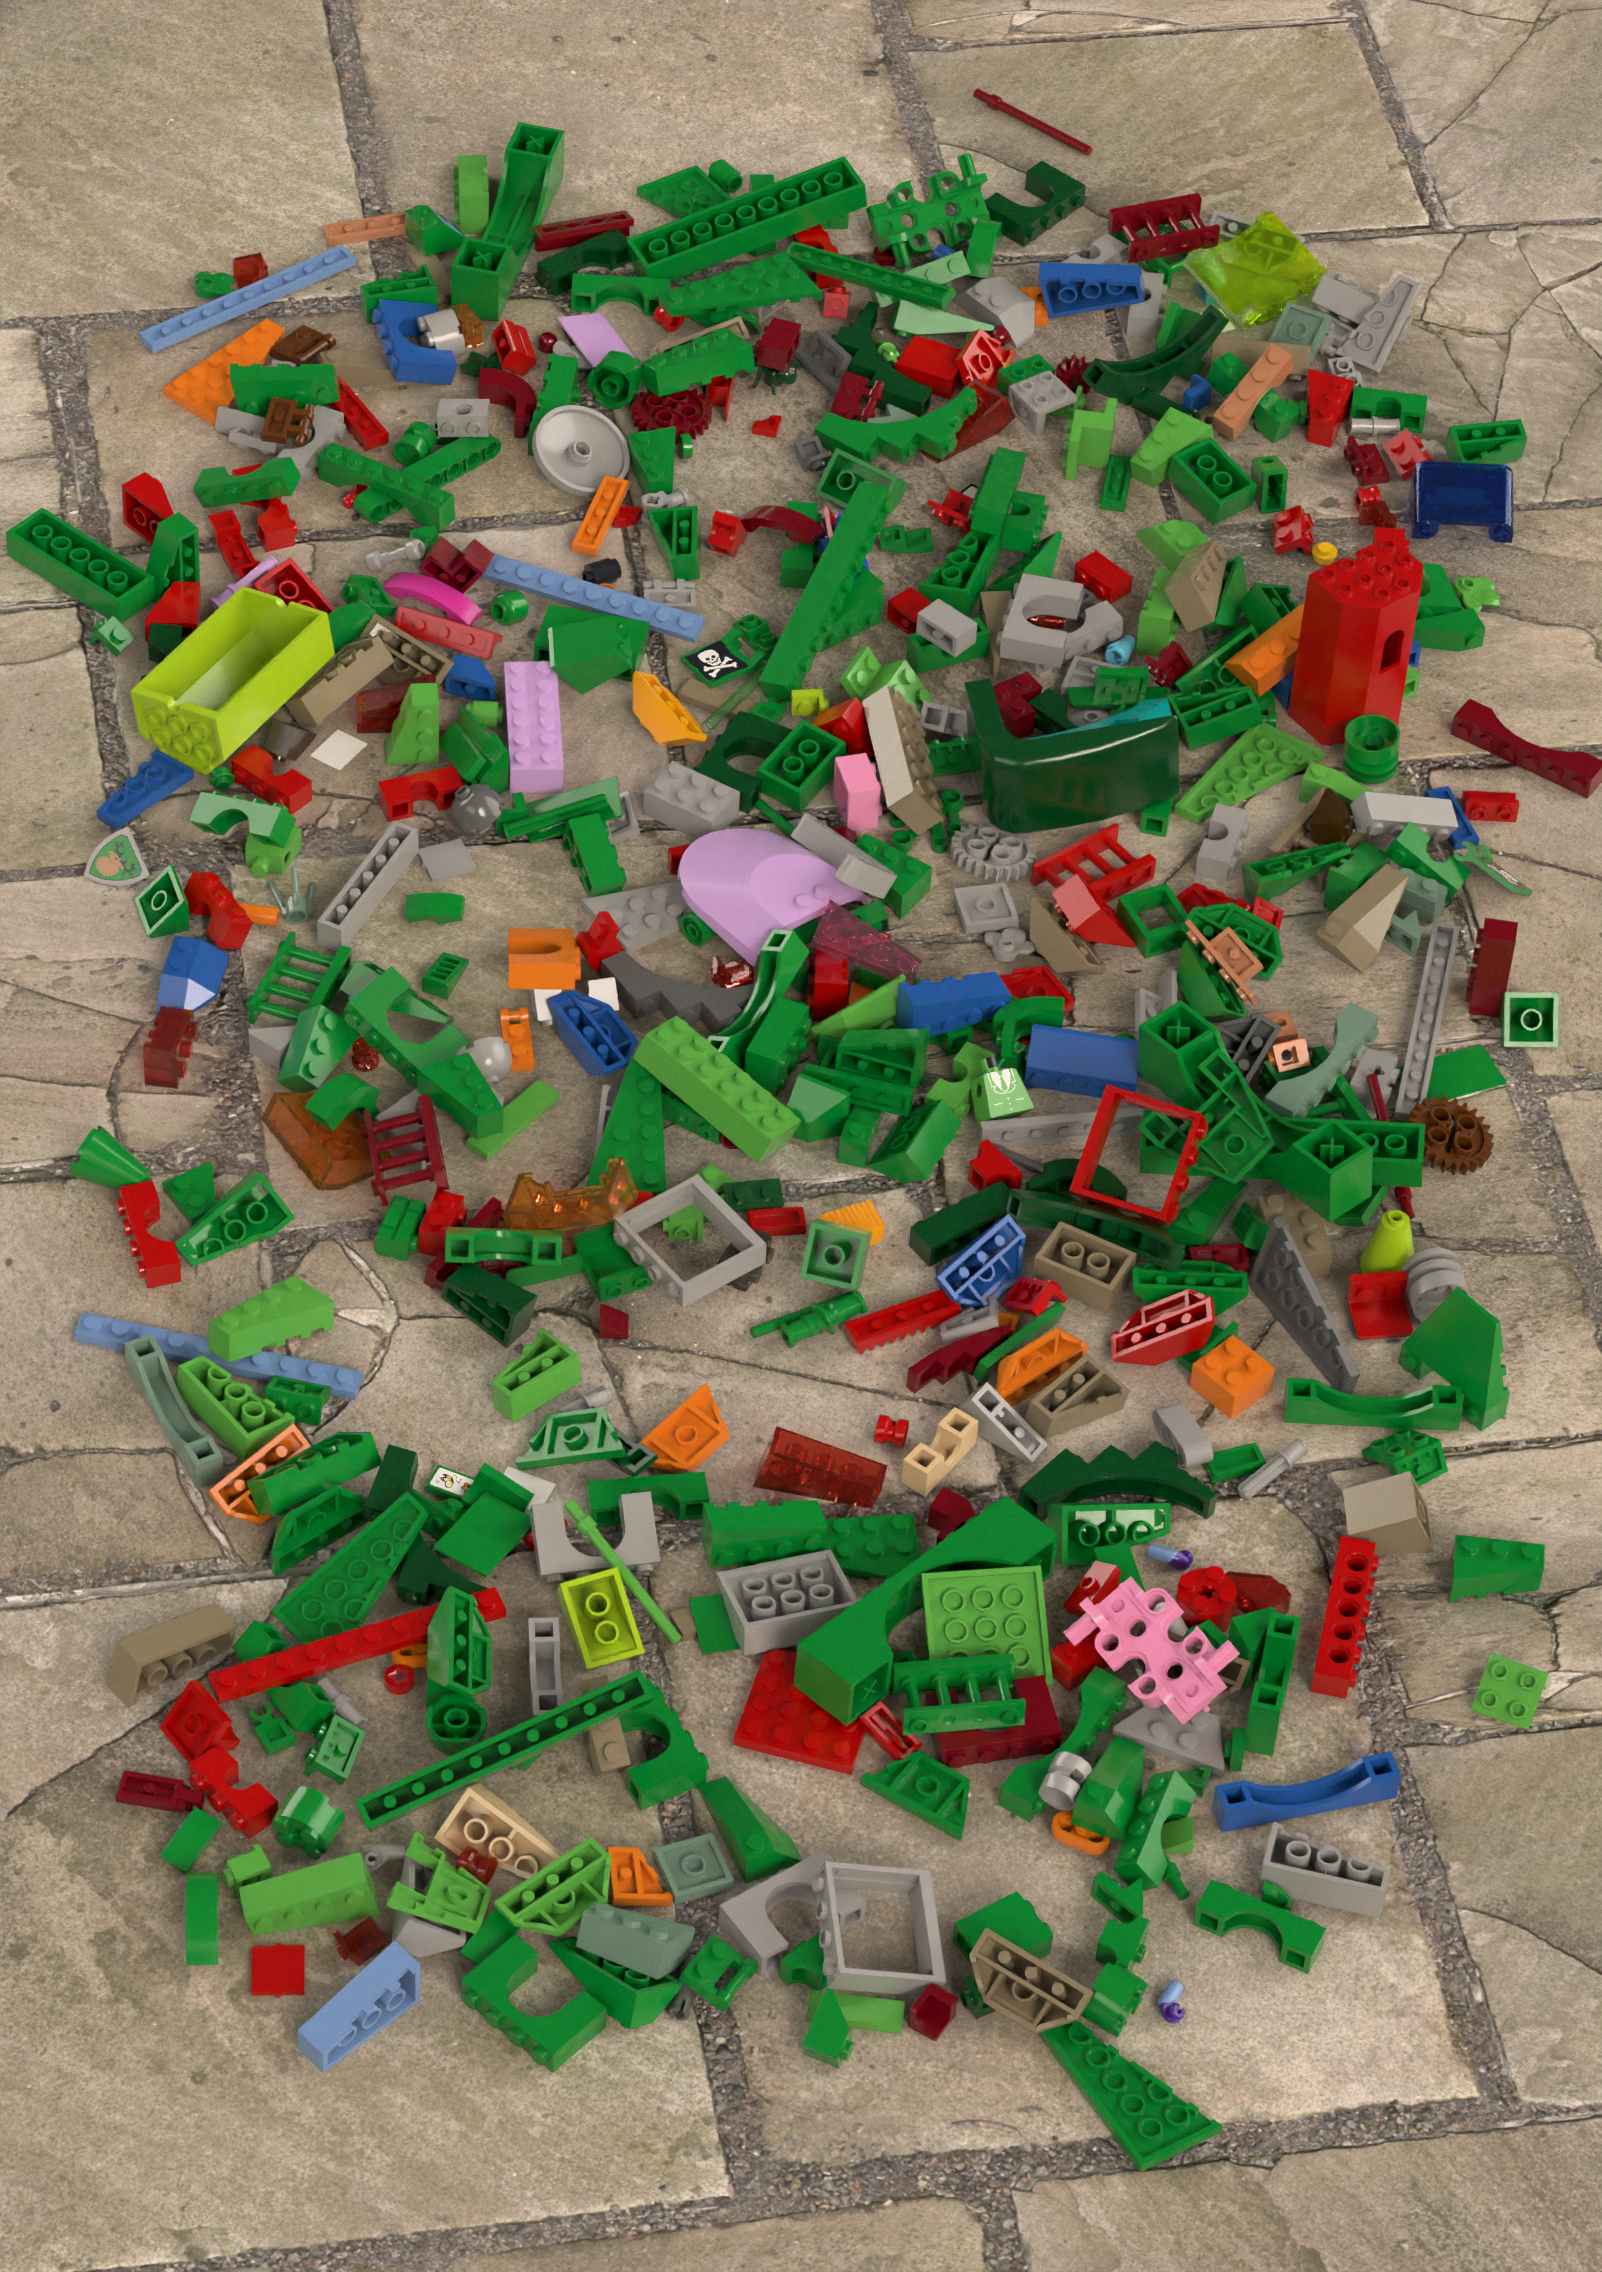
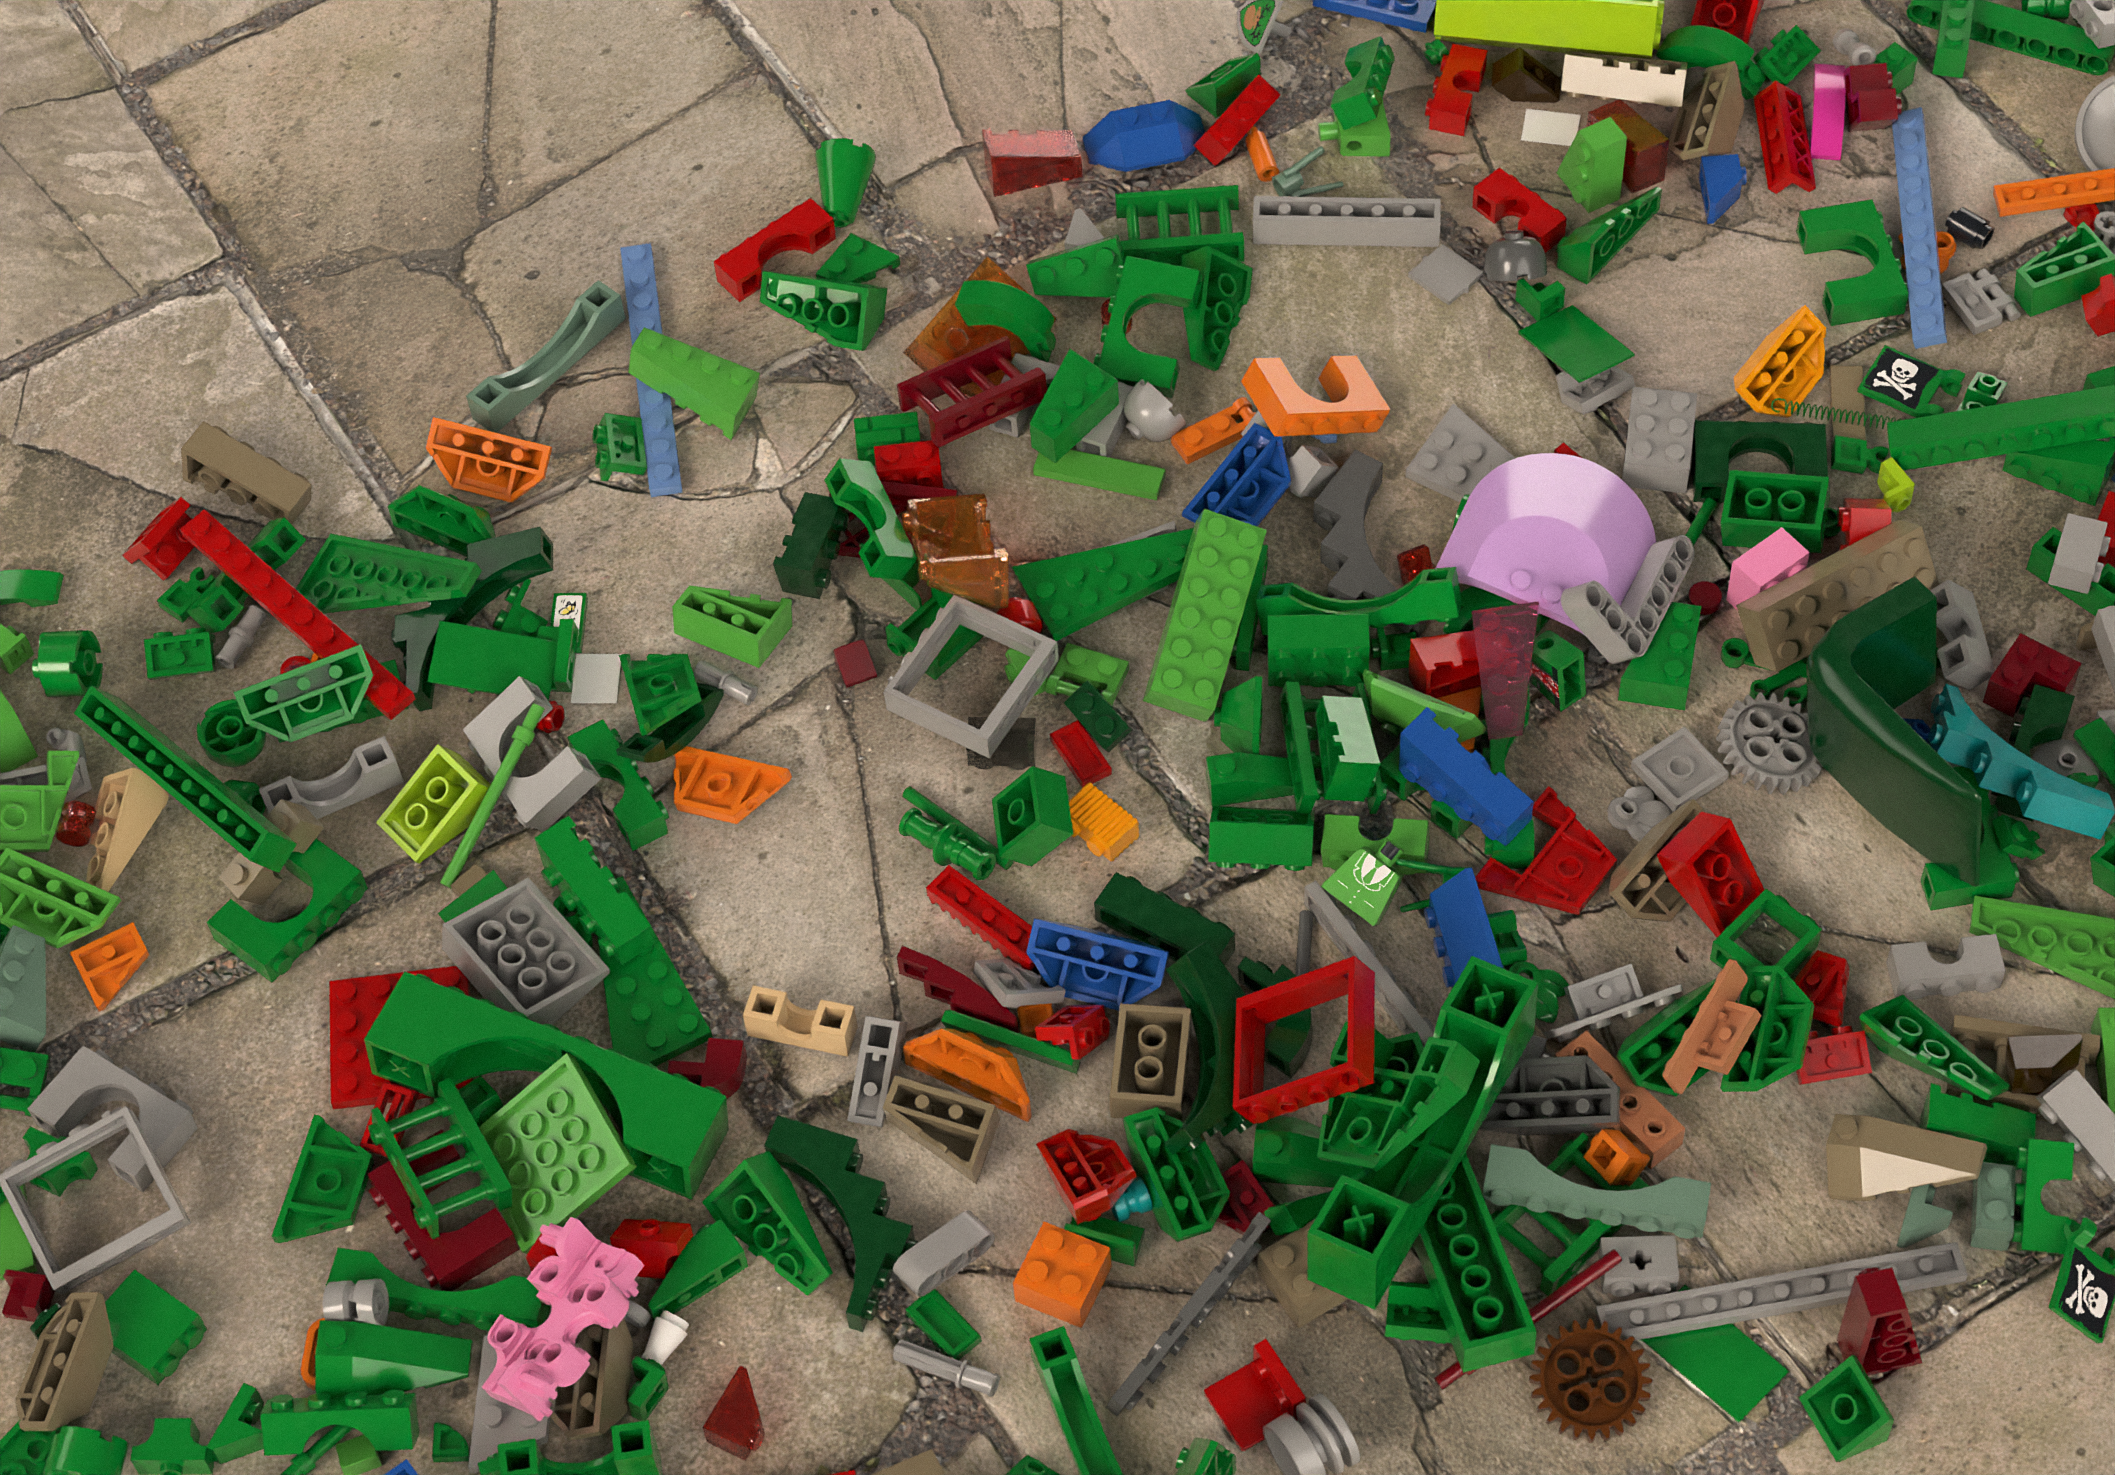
camera: 75 degrees right, 10 degrees up
(158, 1793) = (76, 540): dark red hinge -> none
(230, 1407) = (569, 400): bright green wedge -> none
(246, 1809) = (106, 574): red arch -> none
(313, 1471) = (506, 489): green wedge -> none
(433, 979) = (1257, 342): green slope -> none
(437, 906) = (1359, 289): green slope -> none
(462, 752) = (1587, 215): green tile -> none
(487, 712) = (1675, 216): bright green brick -> none
(509, 607) = (1854, 173): green head -> none
(533, 727) = (1682, 262): lavender brick -> none
(555, 816) = (1516, 306): green axle -> none
(590, 651) = (1810, 255): green slope -> none
(594, 855) = (1512, 386): green wedge -> none
(600, 940) = (1373, 438): red brick -> none
(693, 1868) = (143, 1010): sand green plate -> none
(750, 1835) = (207, 1043): green wedge -> none
(818, 1470) = (720, 920): clear red wedge -> none
(867, 676) = (1962, 538): bright green bracket -> none
(891, 1431) = (818, 971): red wheel -> none
(993, 1167) = (1261, 922): red brick -> none
(1018, 1017) = (1493, 858): green arch -> none
(1116, 880) = (1809, 883): red fence -> none
(1175, 1559) = (760, 1304): arm -> none
(1205, 1596) = (684, 1357): red brick -> none
(1248, 1637) = (643, 1407): green slope -> none
(1388, 1245) = (1351, 1378): lime cone -> none

